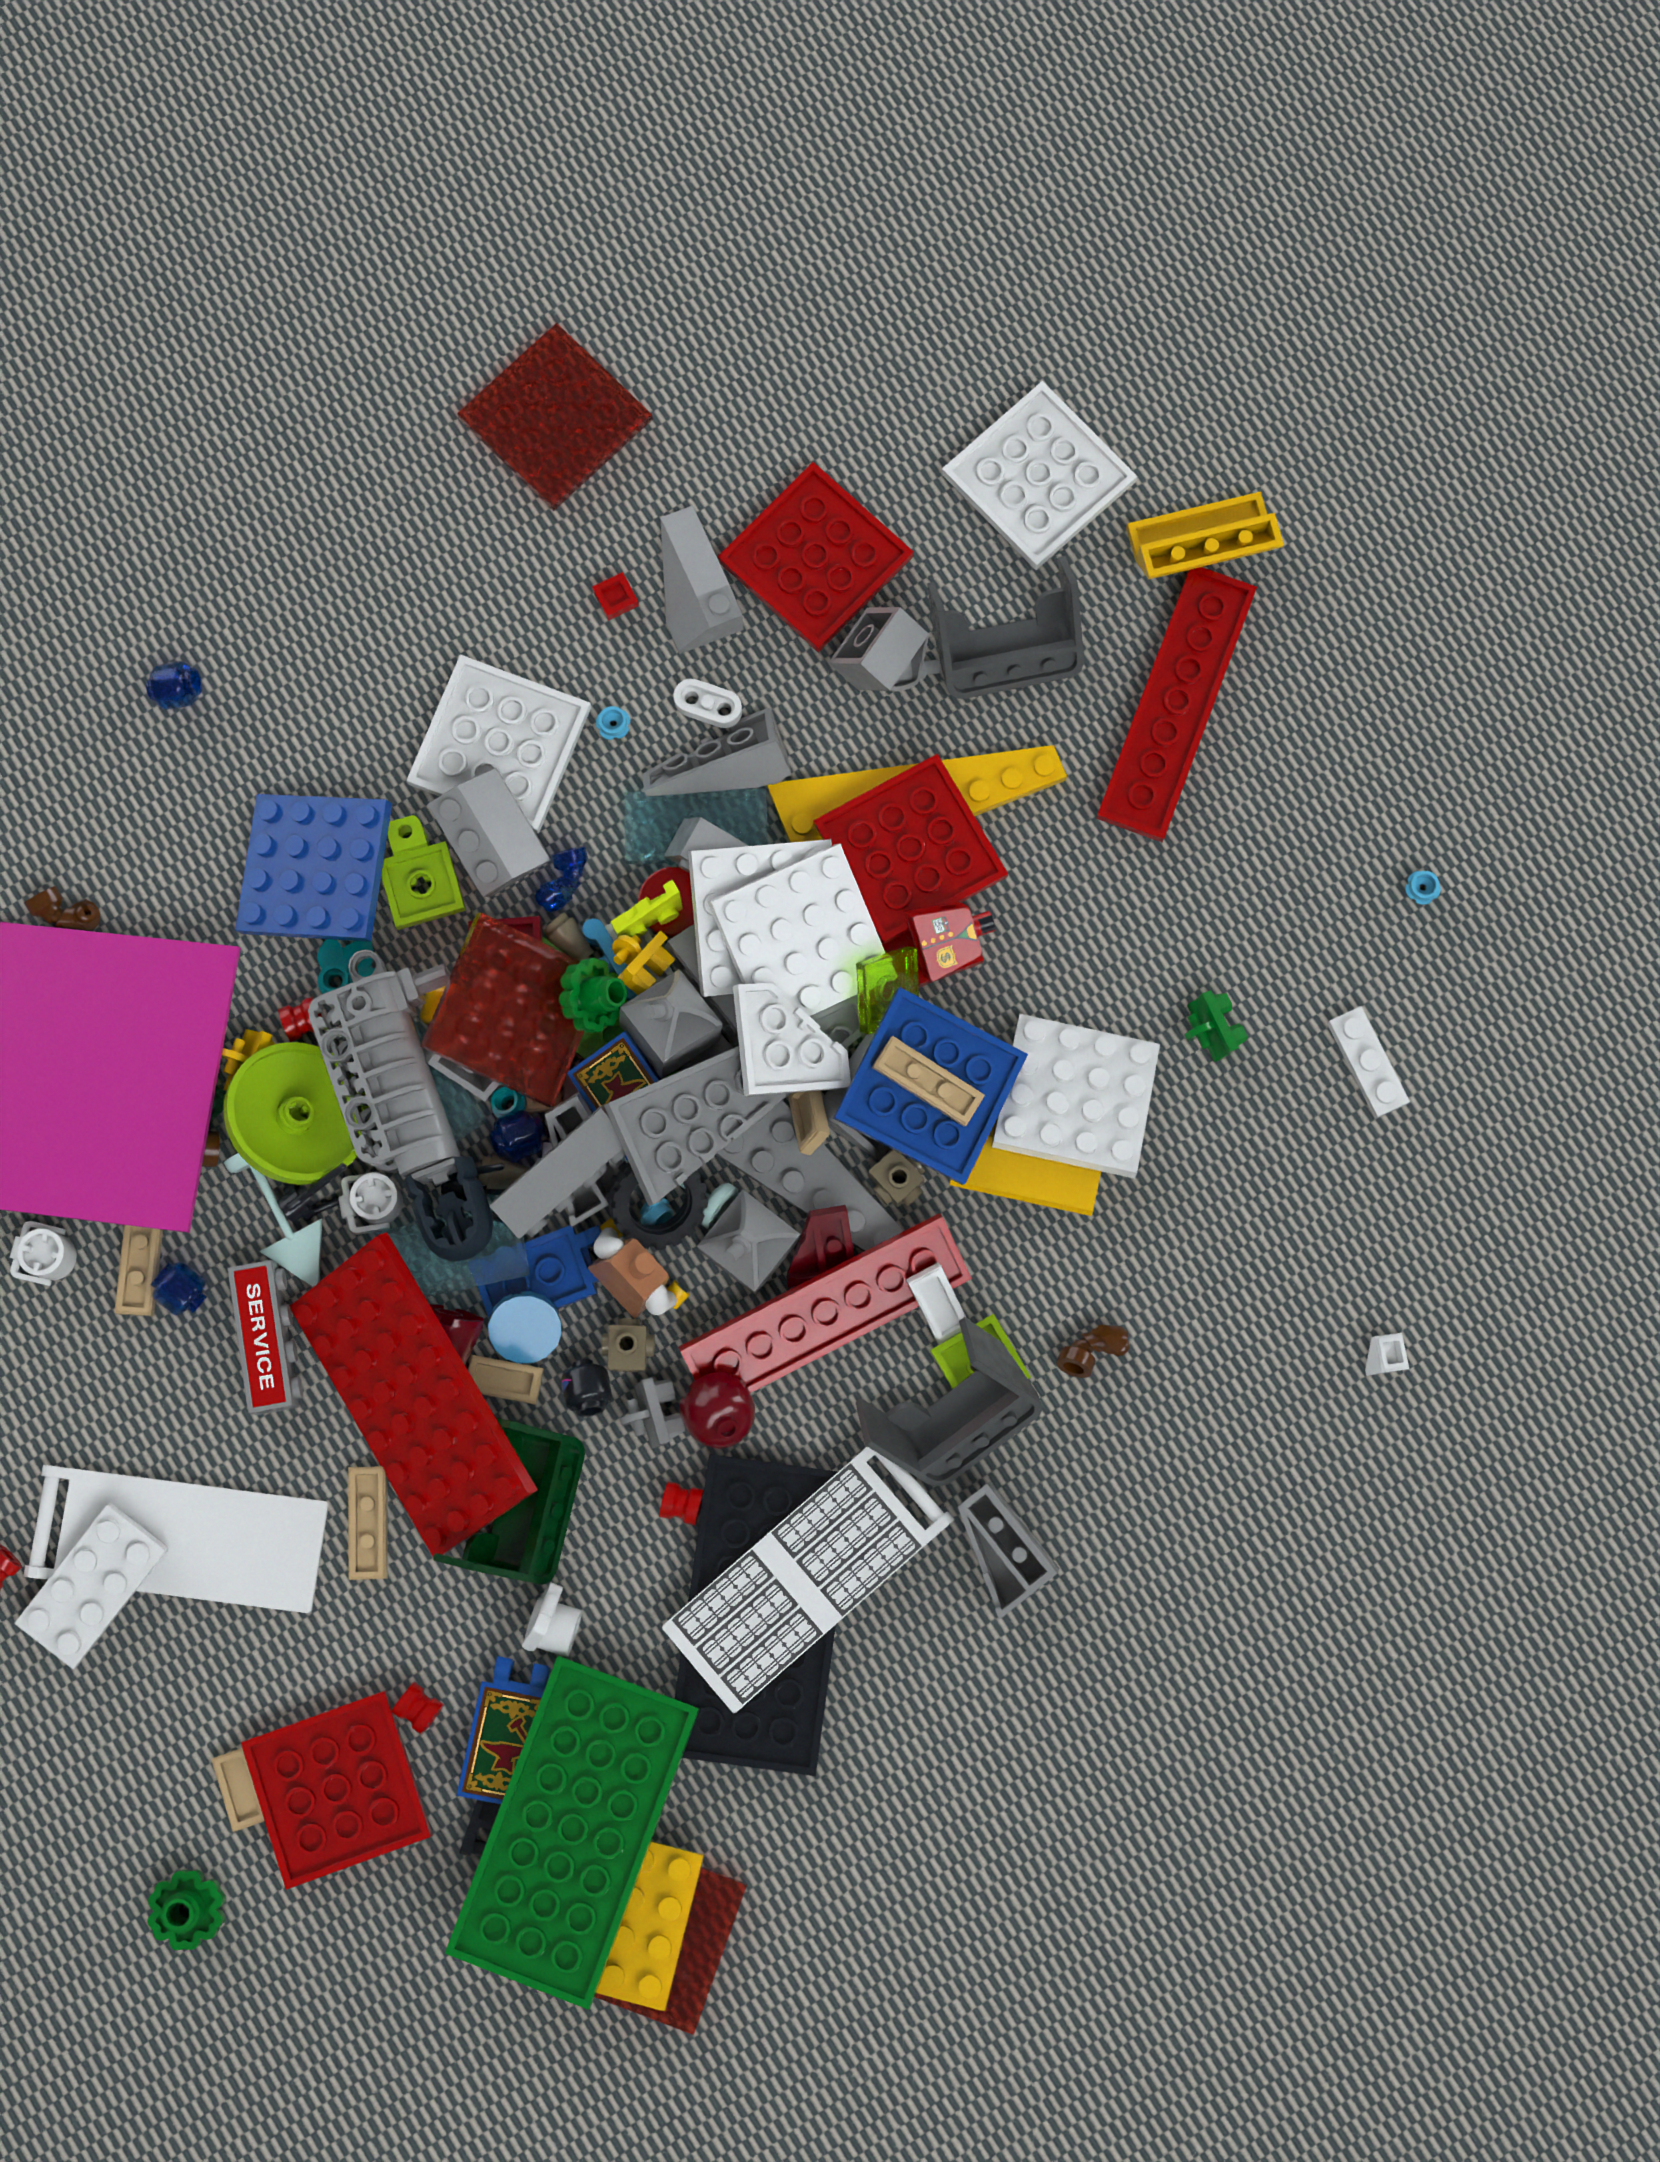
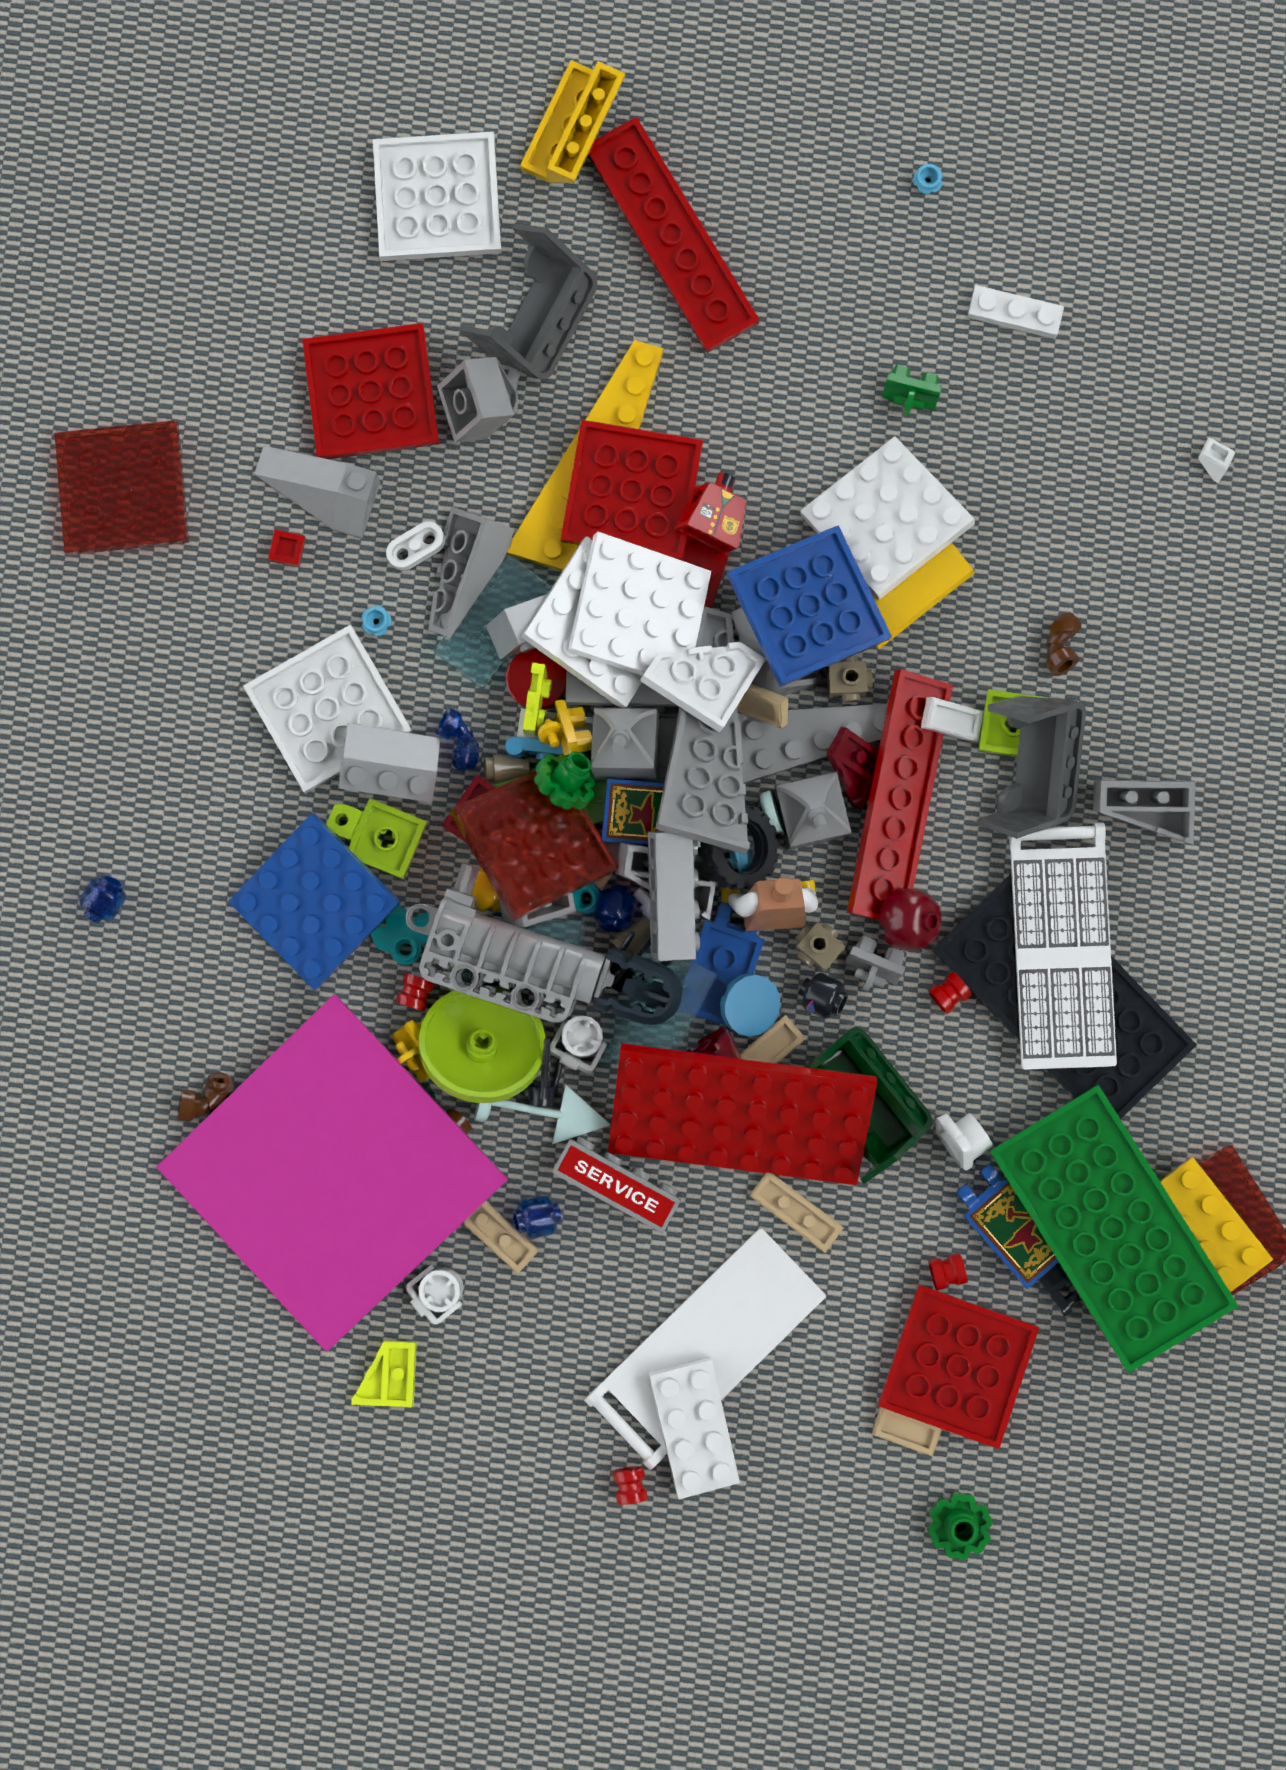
camera: 50 degrees left, 5 degrees up
(878, 982) = (712, 584): clear neon green tile -> none
(928, 1081) = (806, 604): tan tile -> none

